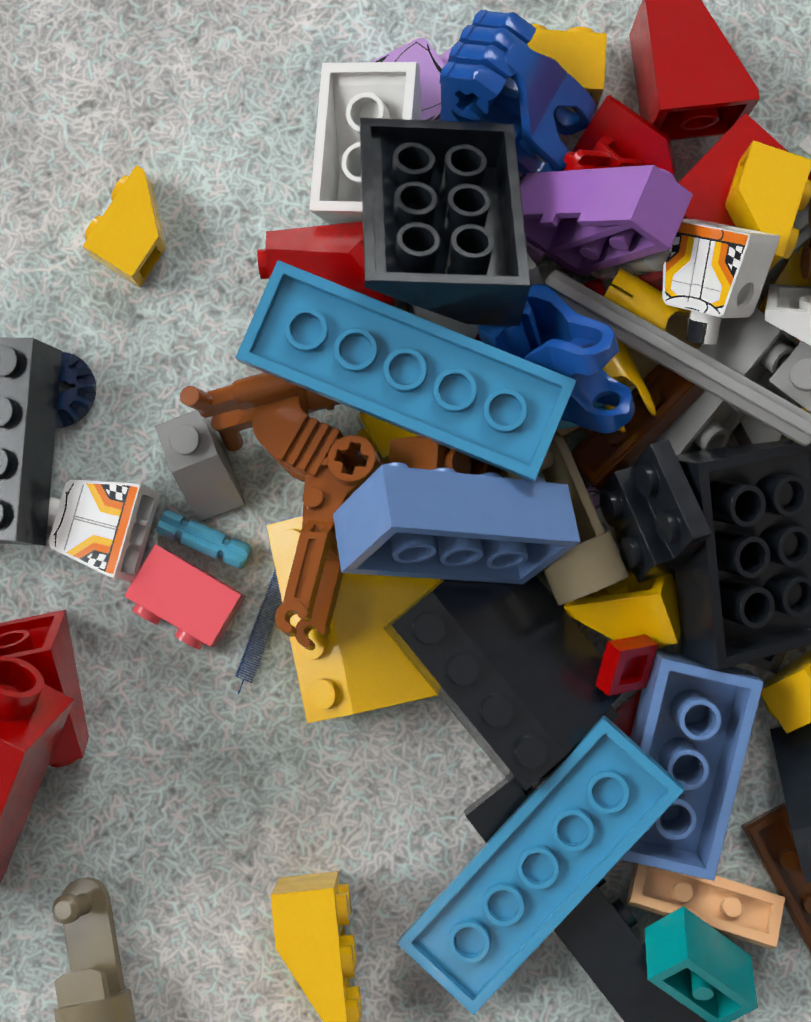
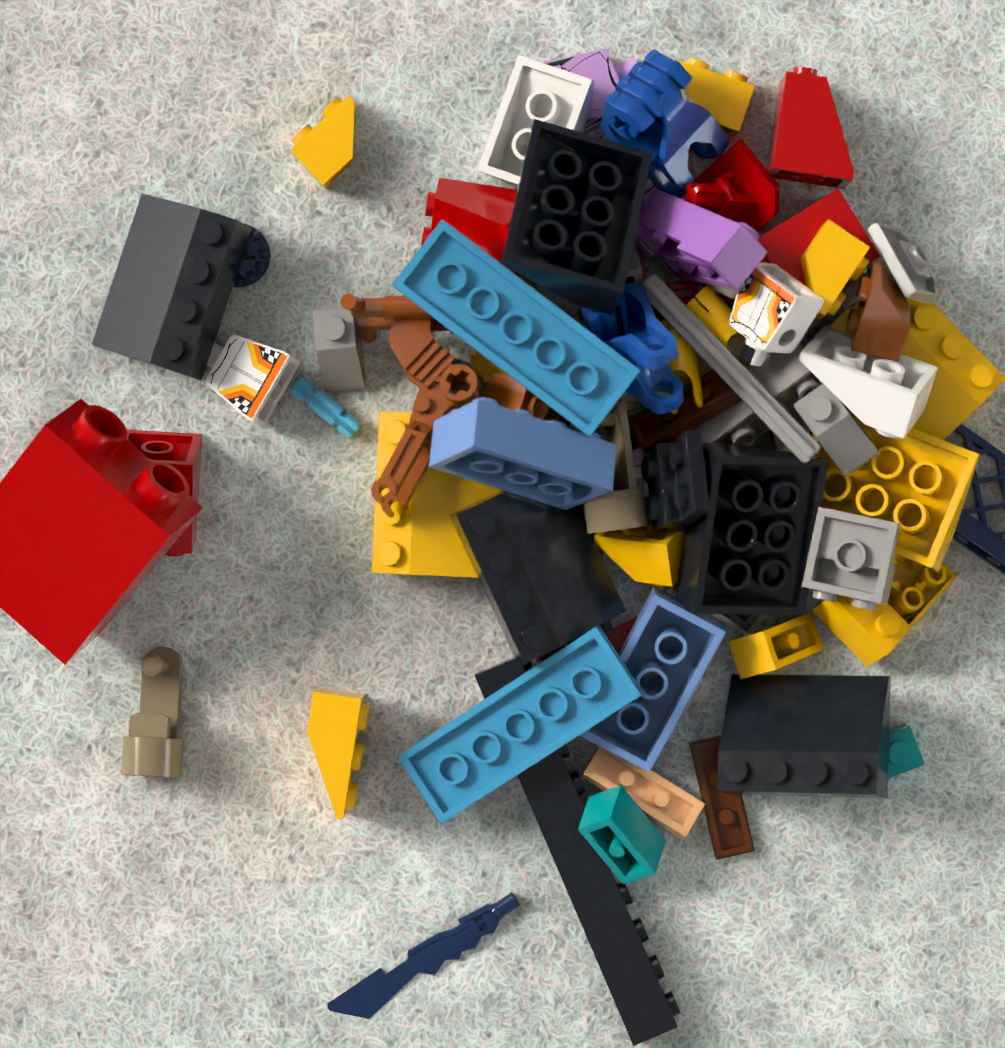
camera: 15 degrees right, 5 degrees up
(184, 597) = (300, 450): coral brick -> none
(238, 671) = (342, 496): blue piece -> none
(626, 664) = (628, 592): red plate -> none

